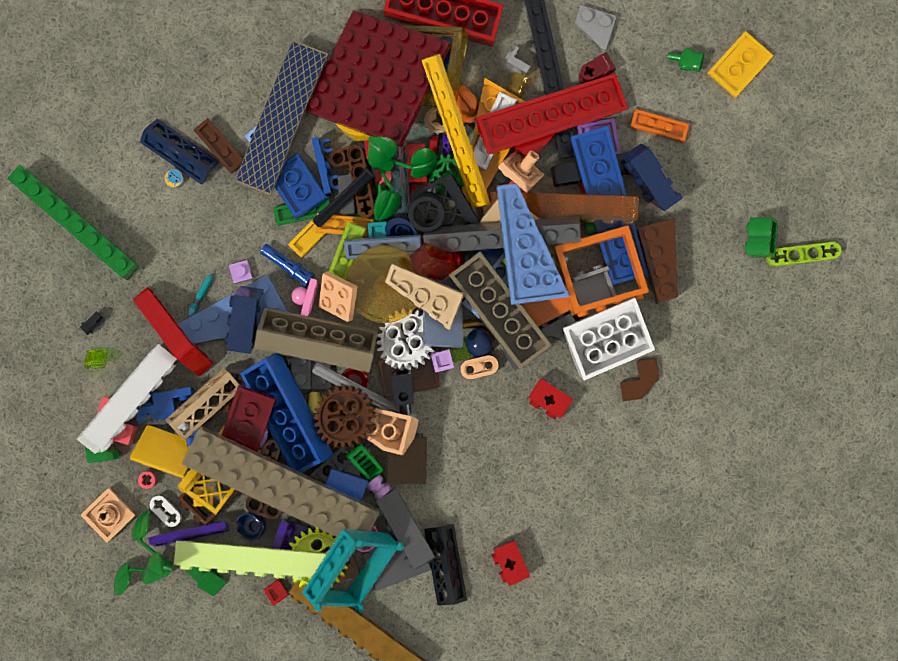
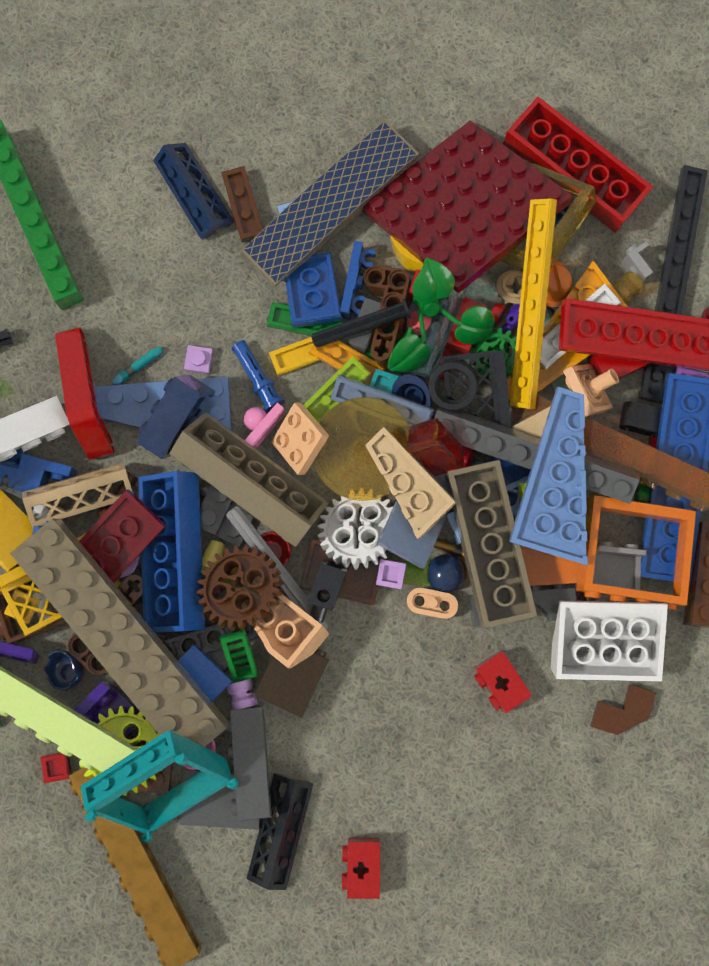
camera: 20 degrees right, 5 degrees down
(174, 178) = (172, 218): tile -> none

